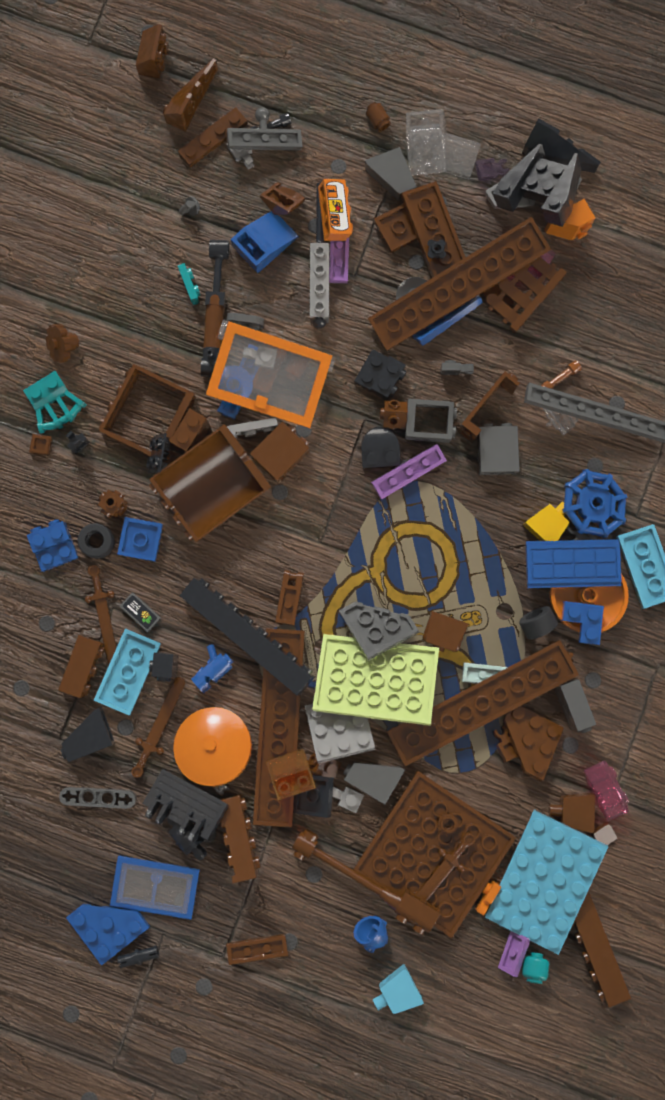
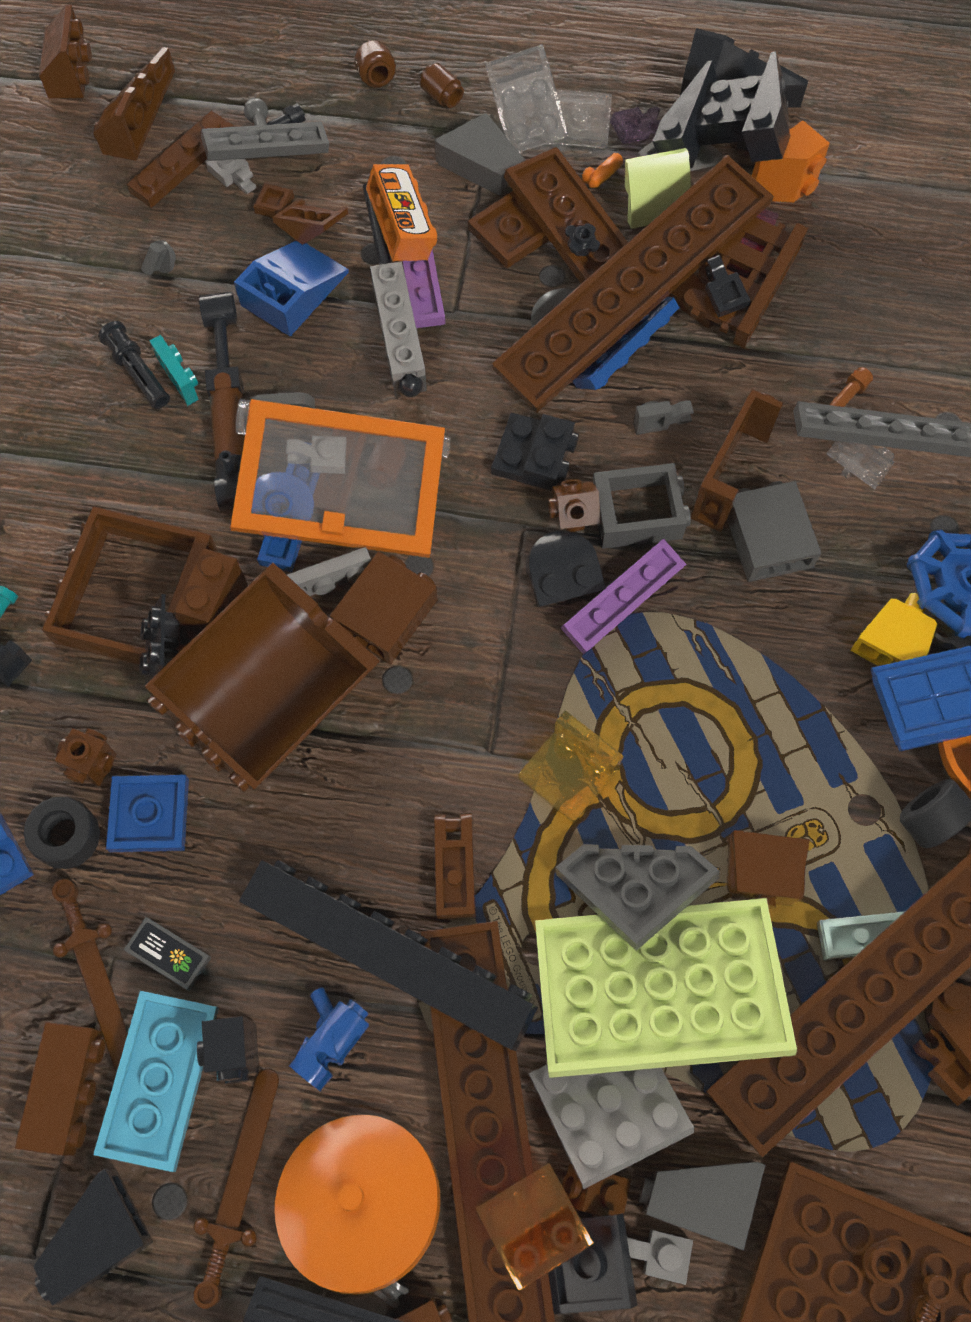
camera: 10 degrees left, 15 degrees down
(163, 267) = (127, 354): none -> black pin
(262, 178) = (272, 200): none -> reddish brown tile
(340, 93) = (375, 63): none -> reddish brown head
(358, 560) = (571, 767): none -> clear yellow bracket
(463, 198) = (603, 171): none -> orange arm
(489, 220) = (655, 184): none -> yellowish green slope
(509, 302) = (724, 290): none -> black plate

